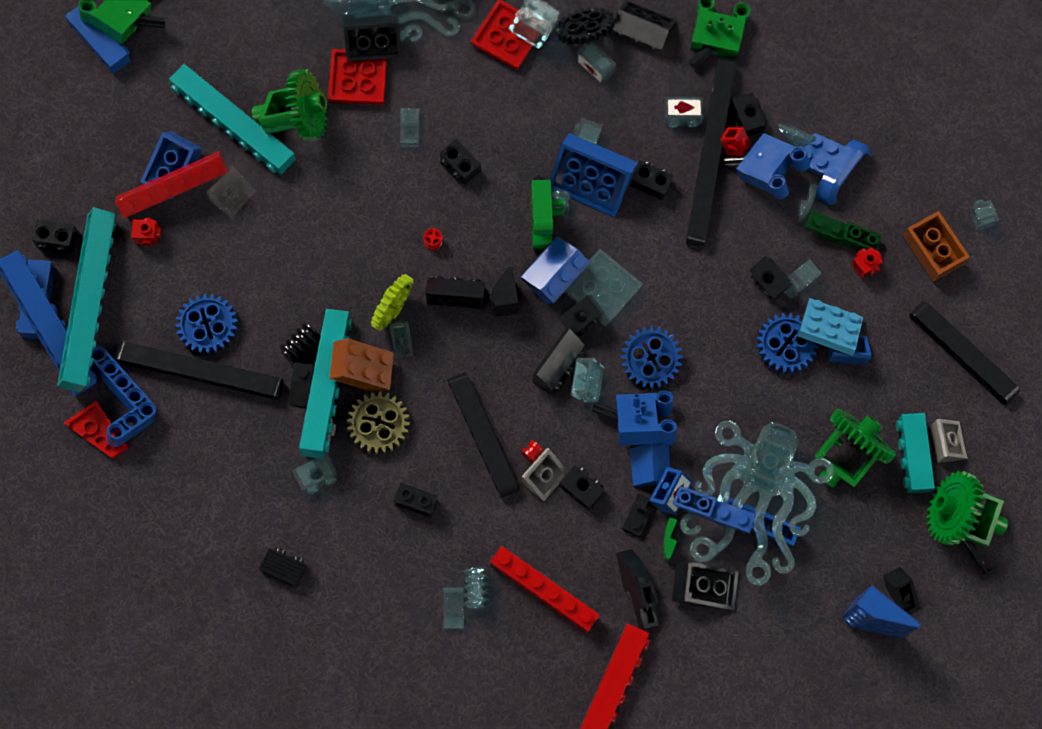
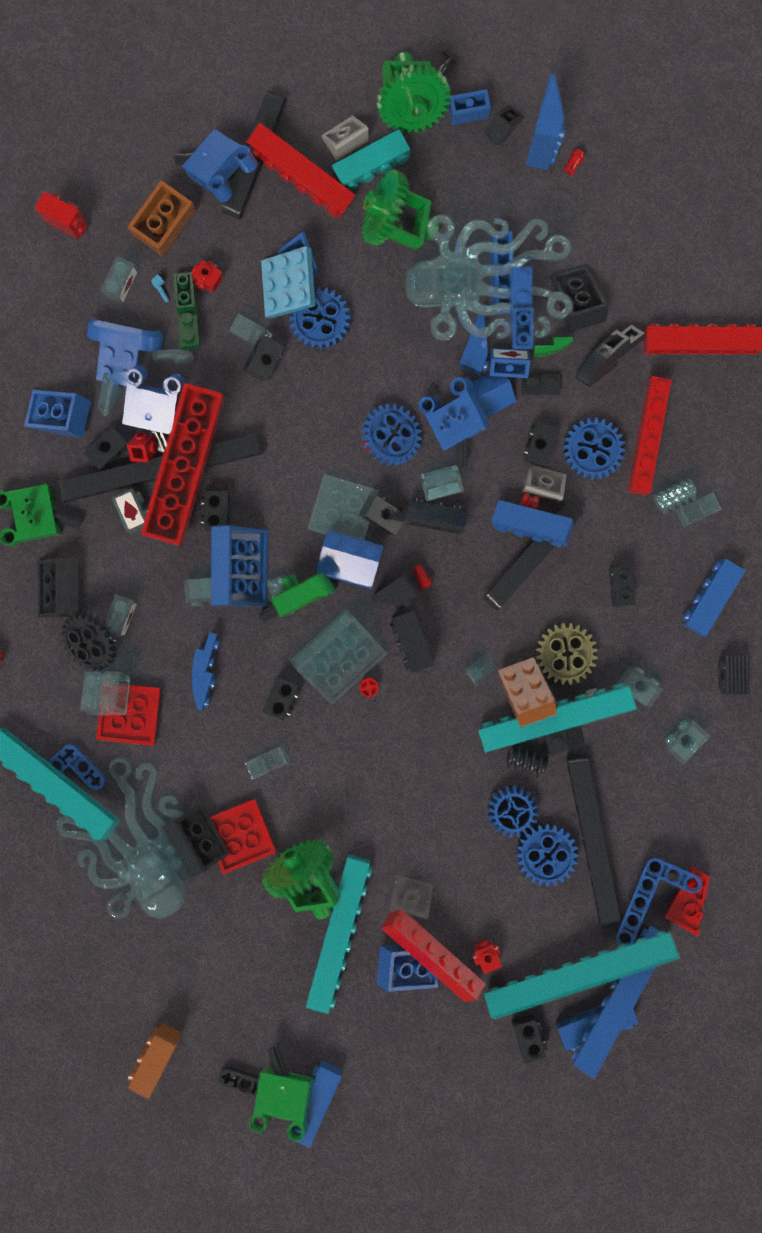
camera: 115 degrees left, 15 degrees up
(239, 483) = (696, 737): none -> clear light blue brick
(275, 316) = (520, 810): none -> blue gear
(364, 580) = (713, 597): none -> blue brick
(392, 302) = (455, 692): lime gear -> none
(472, 225) = (338, 657): none -> clear light blue slope
(509, 105) = (202, 678): none -> blue slope
(509, 328) = (422, 577): none -> red pin
(512, 441) = (532, 523): none -> blue brick
(569, 545) = (598, 432): none -> blue gear
(692, 465) = (476, 351): none -> blue slope
(703, 164) = (183, 464): none -> red brick
(797, 88) = (58, 413): none -> blue slope
(839, 643) = (576, 158): none -> red pin
(879, 219) = (157, 282): none -> dark azure hand
(895, 187) = (119, 280): none -> clear light blue brick
(929, 382) = (299, 171): none -> red brick
(930, 563) = (469, 107): none -> blue brick
(967, 311) = (216, 162): none -> blue piece
(972, 163) = (61, 215): none -> red brick
(983, 214) = (107, 188): clear light blue brick -> none

